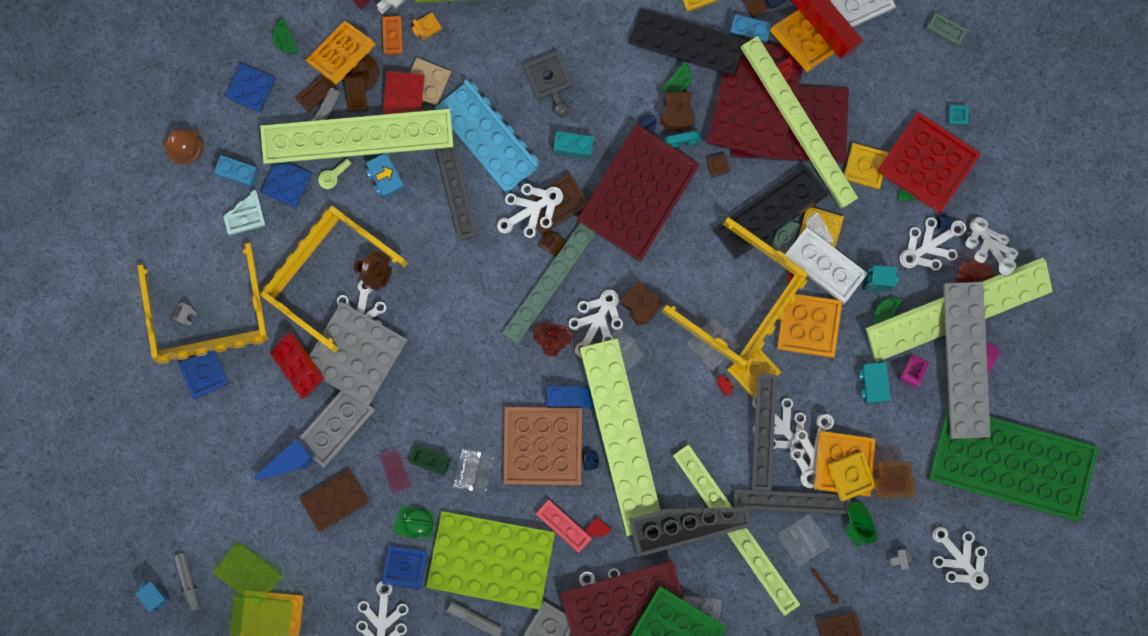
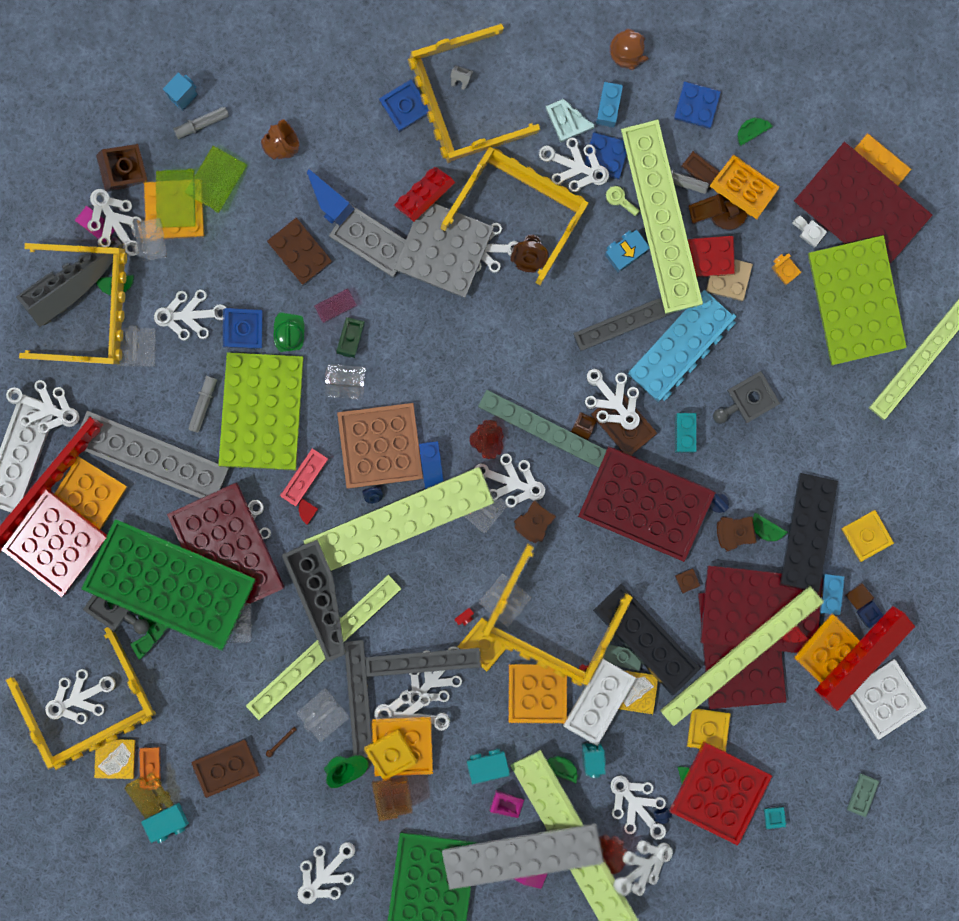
camera: 80 degrees right, 5 degrees up
(220, 502) = (280, 141): none -> dark orange helmet
(293, 211) = (577, 166): none -> white plant
(392, 35) = (771, 236): orange plate -> none
(688, 138) = (709, 548): teal plate -> none
(903, 559) = (316, 816): light grey tile -> none

